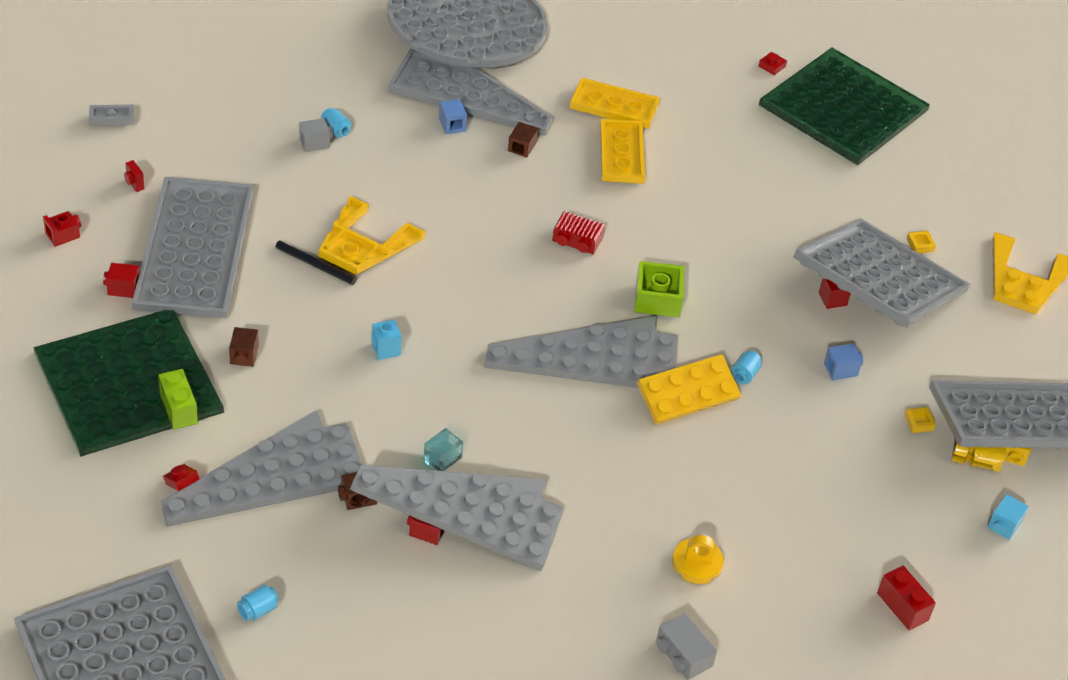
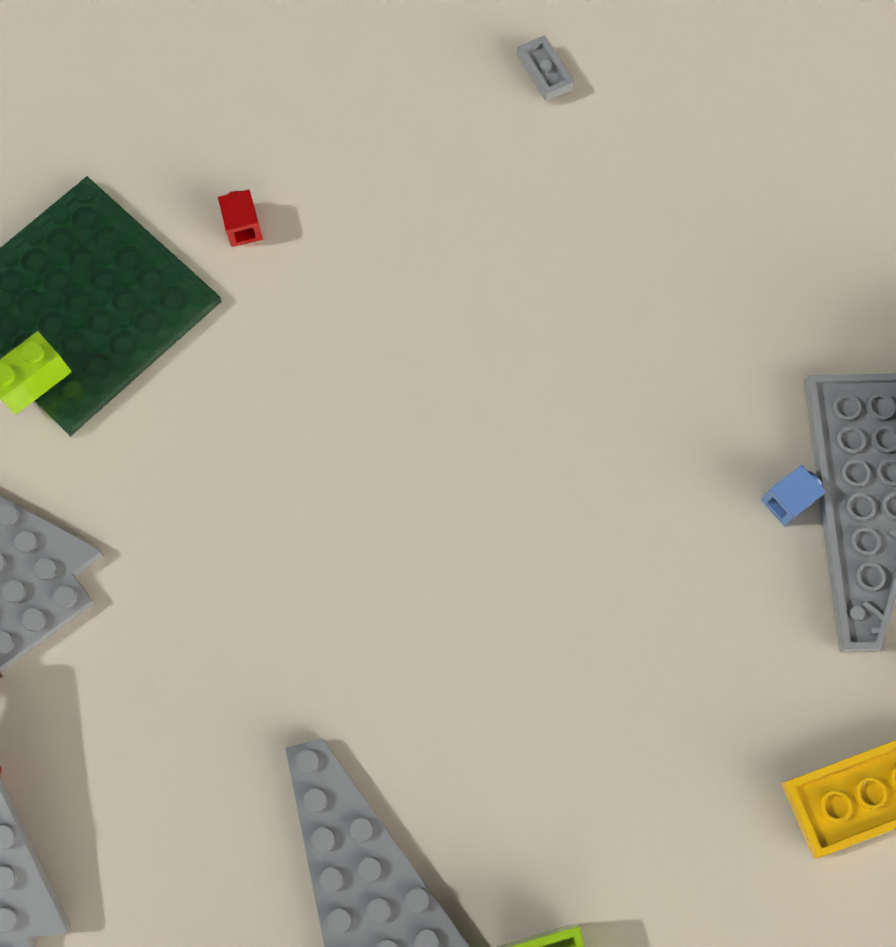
camera: 75 degrees right, 25 degrees up
(62, 228) = (304, 109): red brick -> none
(134, 176) = (439, 144): red plate -> none
(194, 247) = (345, 272): light grey plate -> none
(243, 346) = (177, 411): copper brick -> none
(315, 134) = (642, 323): light grey brick -> none
(315, 262) = (390, 434): black bar -> none
(338, 122) = (685, 340): medium azure brick -> none
(356, 251) = (429, 472): yellow wing -> none
(386, 339) = (263, 589): medium azure brick -> none
(443, 450) = (77, 754): clear light blue brick -> none
(522, 139) = (803, 621): copper brick -> none
(578, 232) = (626, 790): red brick -> none

